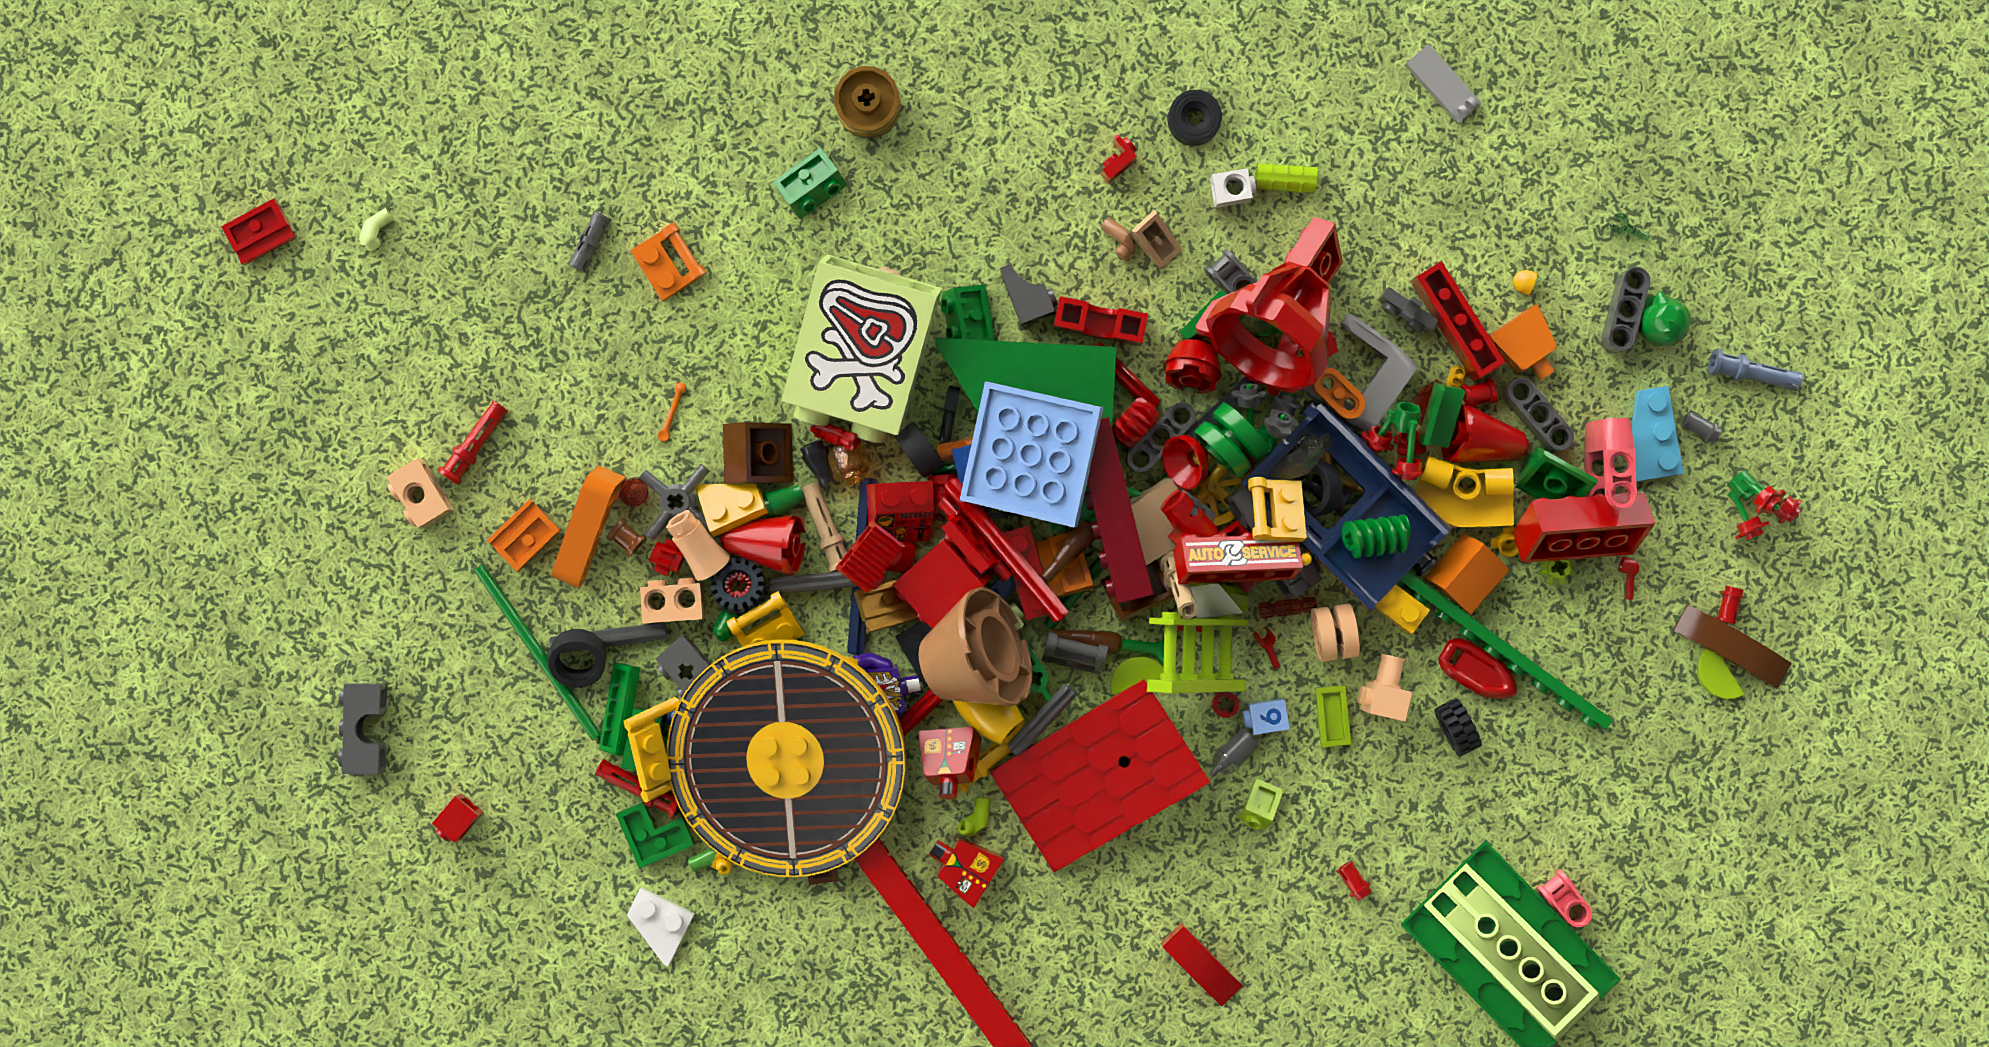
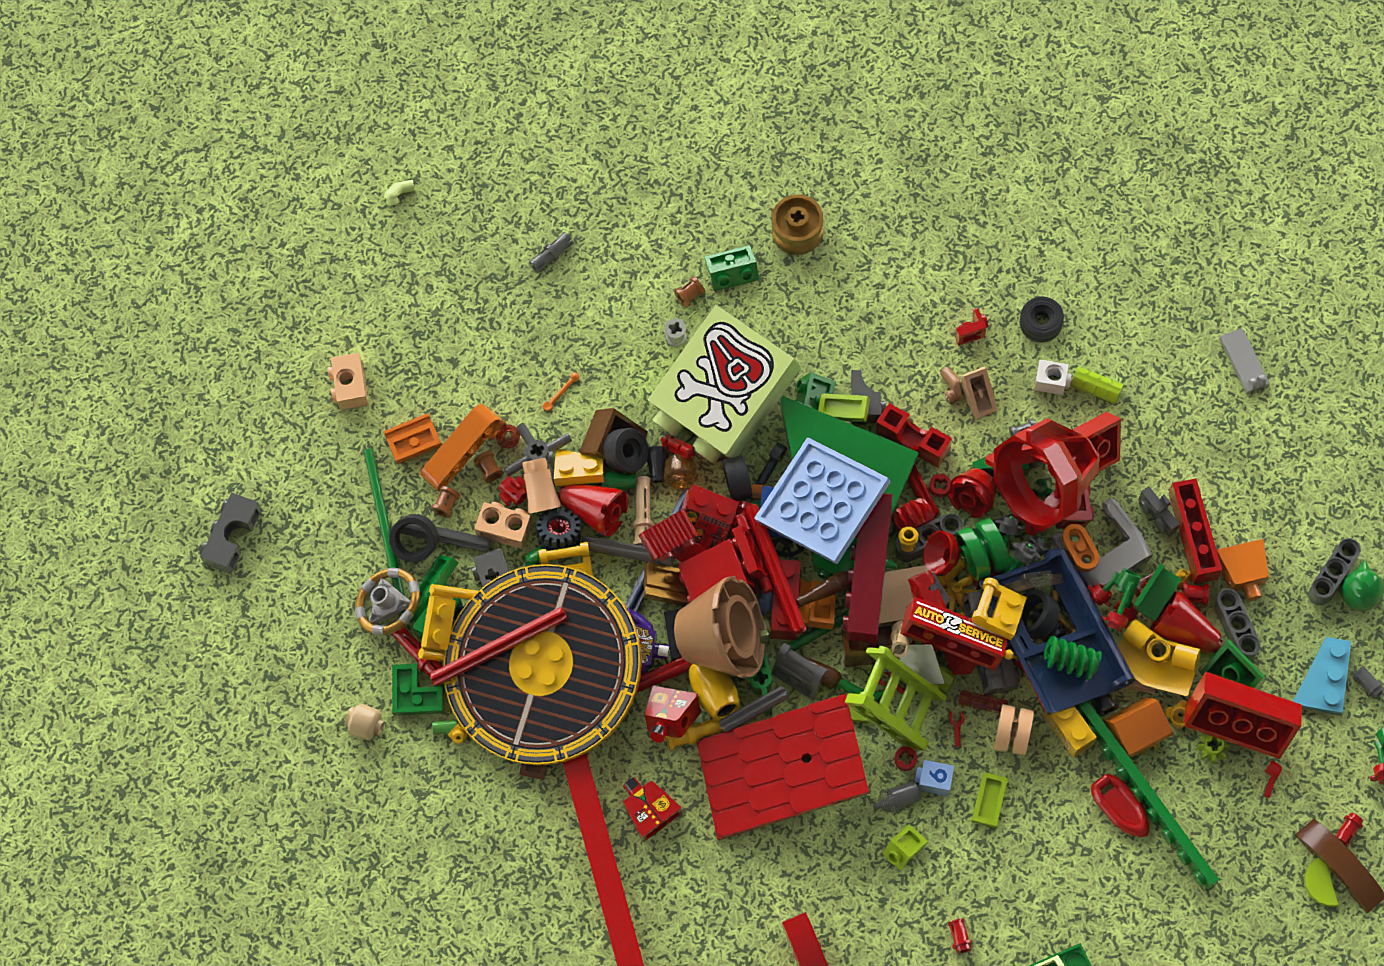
camera: 30 degrees right, 20 degrees down
(259, 231) = (314, 165): red plate -> none
(457, 818) = (269, 624): red brick -> none
(469, 458) = (394, 366): red pin -> none
(578, 742) = (387, 601): none -> light grey piece
(590, 590) = (451, 496): none -> dark orange bush
(612, 890) = (364, 721): none -> tan head
(659, 266) = (595, 286): orange plate -> none
(660, 923) = (390, 763): white wing -> none
(730, 759) = (498, 646): none -> red axle
(763, 465) = (614, 454): none -> black tyre
(770, 285) = (670, 329): none -> light grey bush
(773, 233) = (689, 291): none -> dark orange bush
(976, 821) = (673, 776): lime arm -> none
(1008, 319) = (845, 406): none -> lime tile
(1147, 358) = (940, 478): none -> red bush
(1148, 452) = (908, 538): none -> yellow pin
(1384, 694) = (1037, 792): light nougat brick -> none
(1458, 727) = (1088, 839): black tyre -> none
(1524, 281) = (1260, 523): yellow hinge -> none
(1605, 441) = (1283, 664): coral connector -> none
(1628, 227) = (1356, 513): clear green hand -> none

